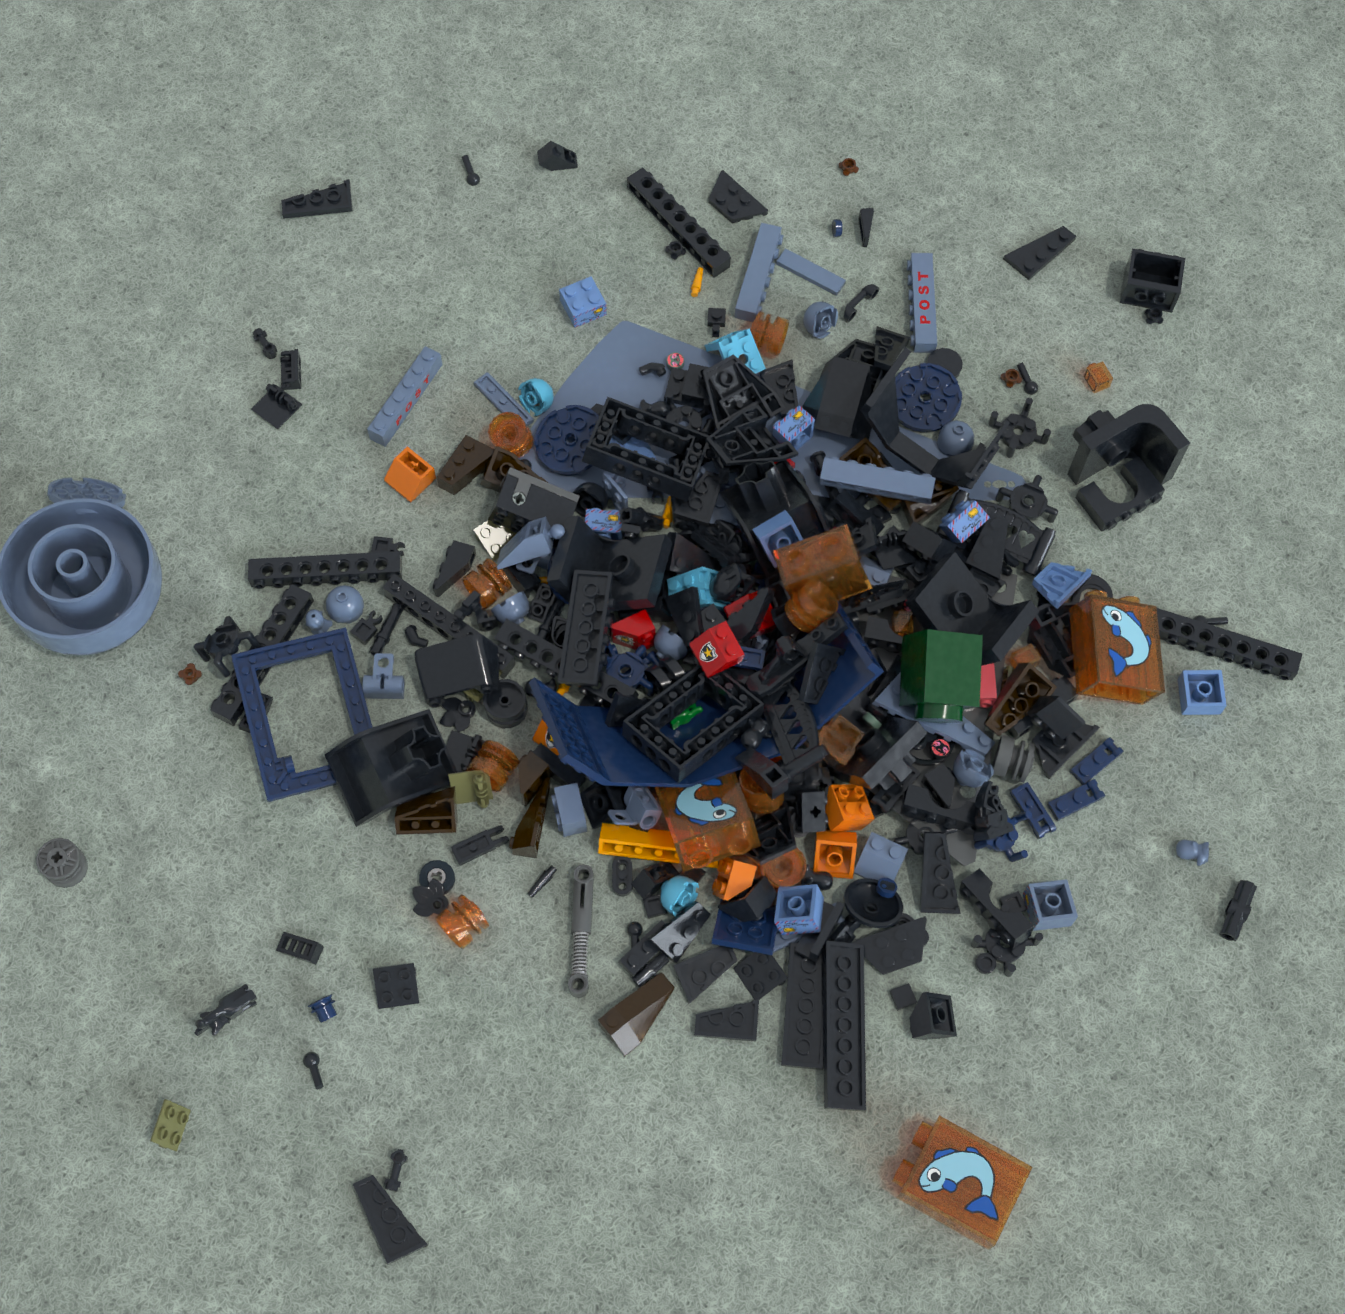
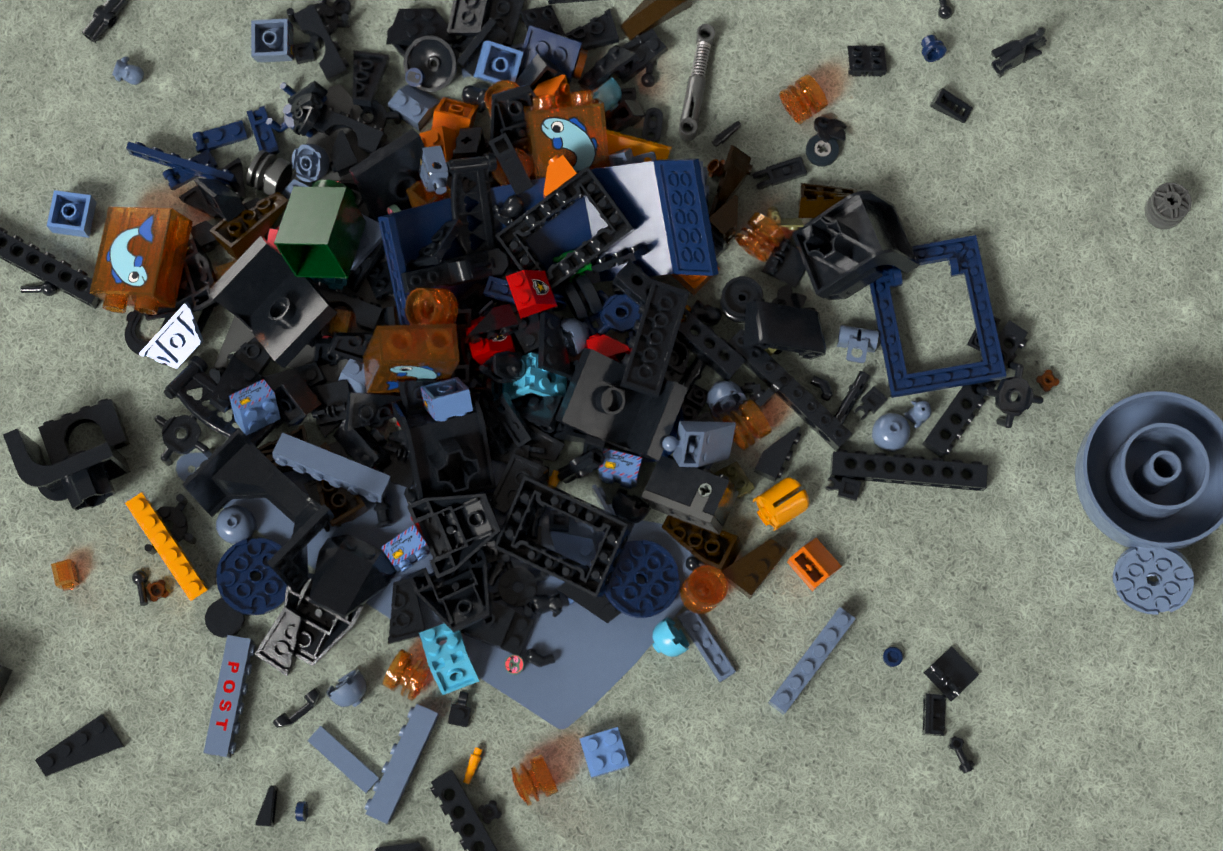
camera: 170 degrees left, 10 degrees up
(331, 413) = (892, 656): none -> dark blue tile
(445, 521) = (787, 510): none -> light orange cylinder
(548, 840) = (715, 168): none -> reddish brown plate
(640, 269) = (534, 780): none -> clear orange wheel
(708, 763) = (557, 174): none -> orange slope
(709, 927) = (580, 64): none -> reddish brown piece
(841, 757) = (433, 178): none -> sand blue torso
(1013, 403) = (166, 546): none -> light orange brick
(1107, 754) = (175, 161): none -> dark blue plate

